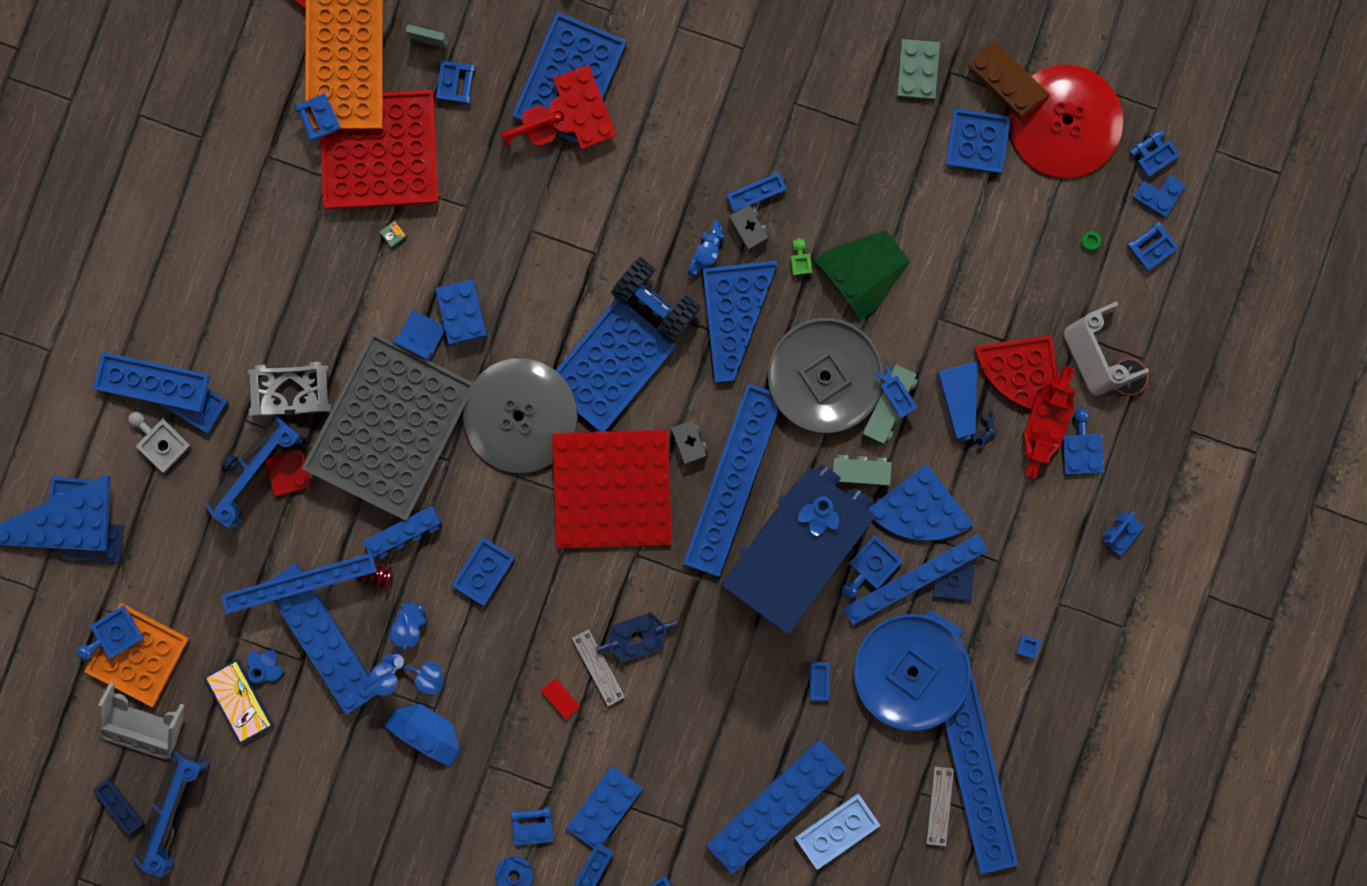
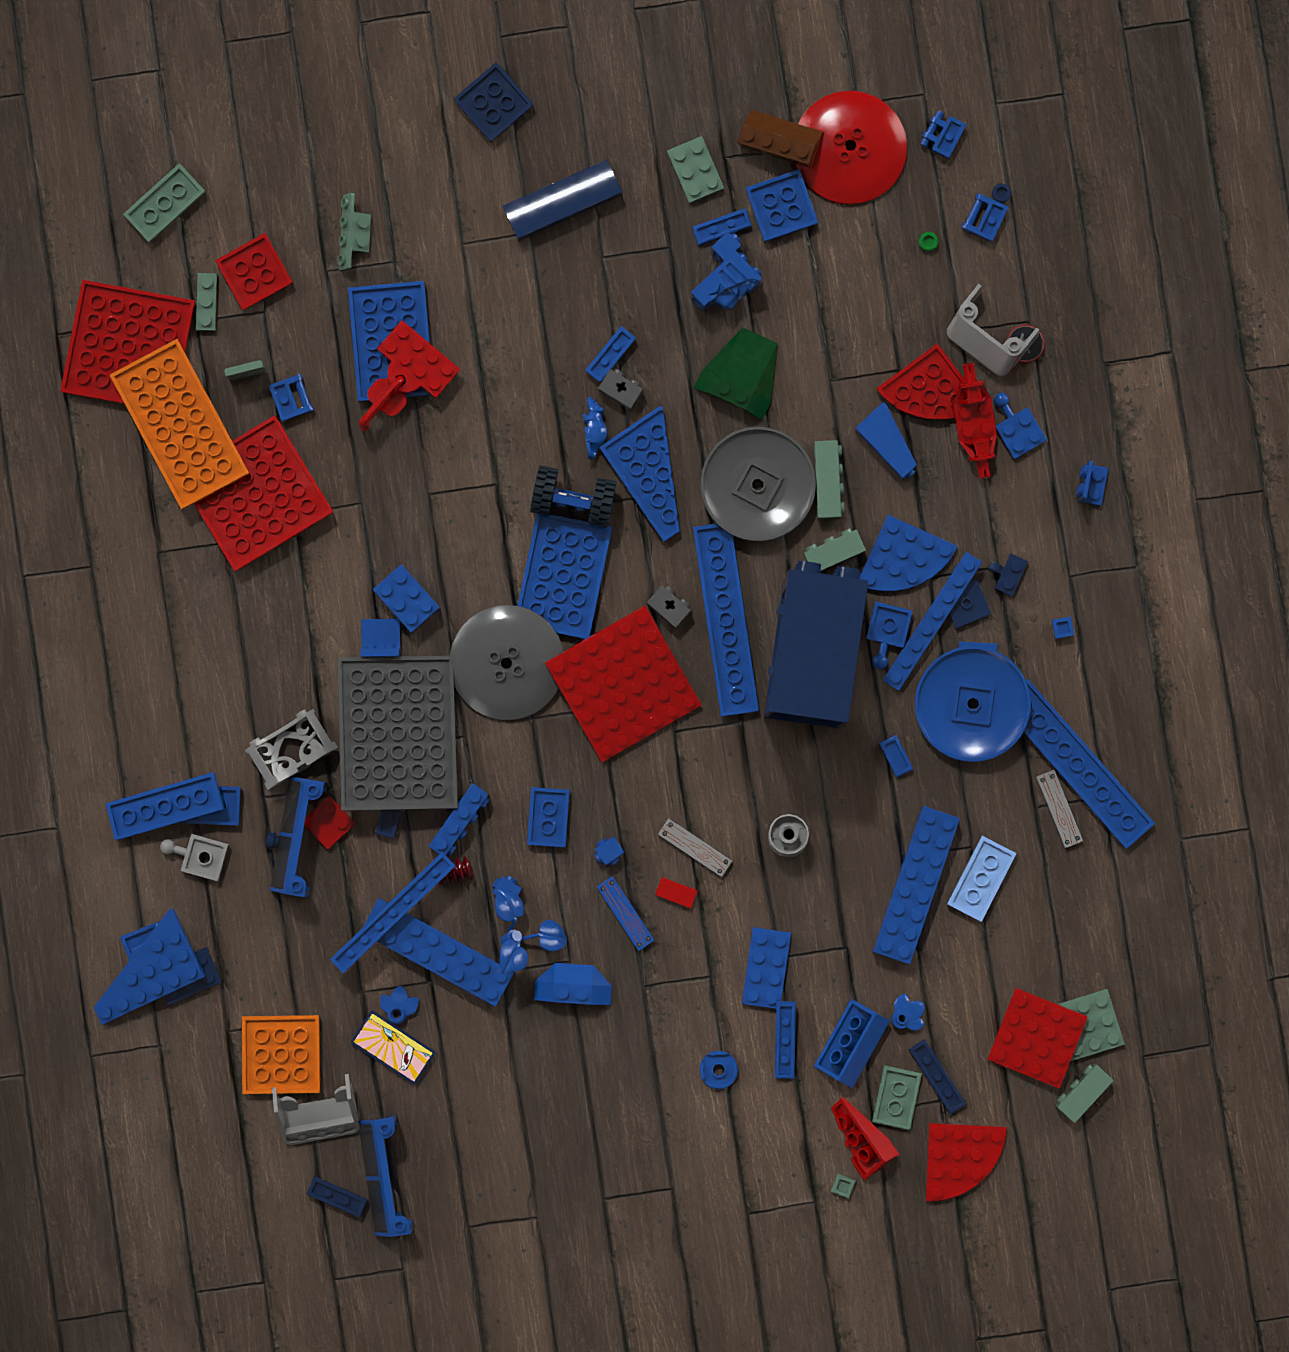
camera: 35 degrees left, 0 degrees up
(114, 633) = (252, 1045): blue plate -> none
(323, 114) = (191, 488): blue plate -> none
(339, 502) = (388, 823): none -> dark blue plate
(393, 234) = (308, 561): sand green tile -> none
(506, 692) = (625, 913): none -> blue tile
(520, 630) = (608, 851): none -> blue brick
(533, 832) = (713, 1024): blue plate -> none
(621, 640) = (728, 793): dark blue plate -> none
(694, 693) = (791, 824): none -> light grey wheel
(786, 34) = (562, 200): none -> dark blue arch
(802, 262) = (683, 395): bright green plate -> none
(817, 518) = (822, 609): blue plate -> none
(896, 181) = (730, 279): none -> blue brick
(897, 393) = (829, 466): blue plate -> none
(915, 131) = (720, 226): none -> blue tile
(990, 427) = (929, 456): dark blue arm -> none
(1006, 574) = (1009, 574): none -> dark blue plate
(1162, 200) = (969, 174): blue plate -> none
(1179, 232) = (1001, 193): none -> dark blue tile

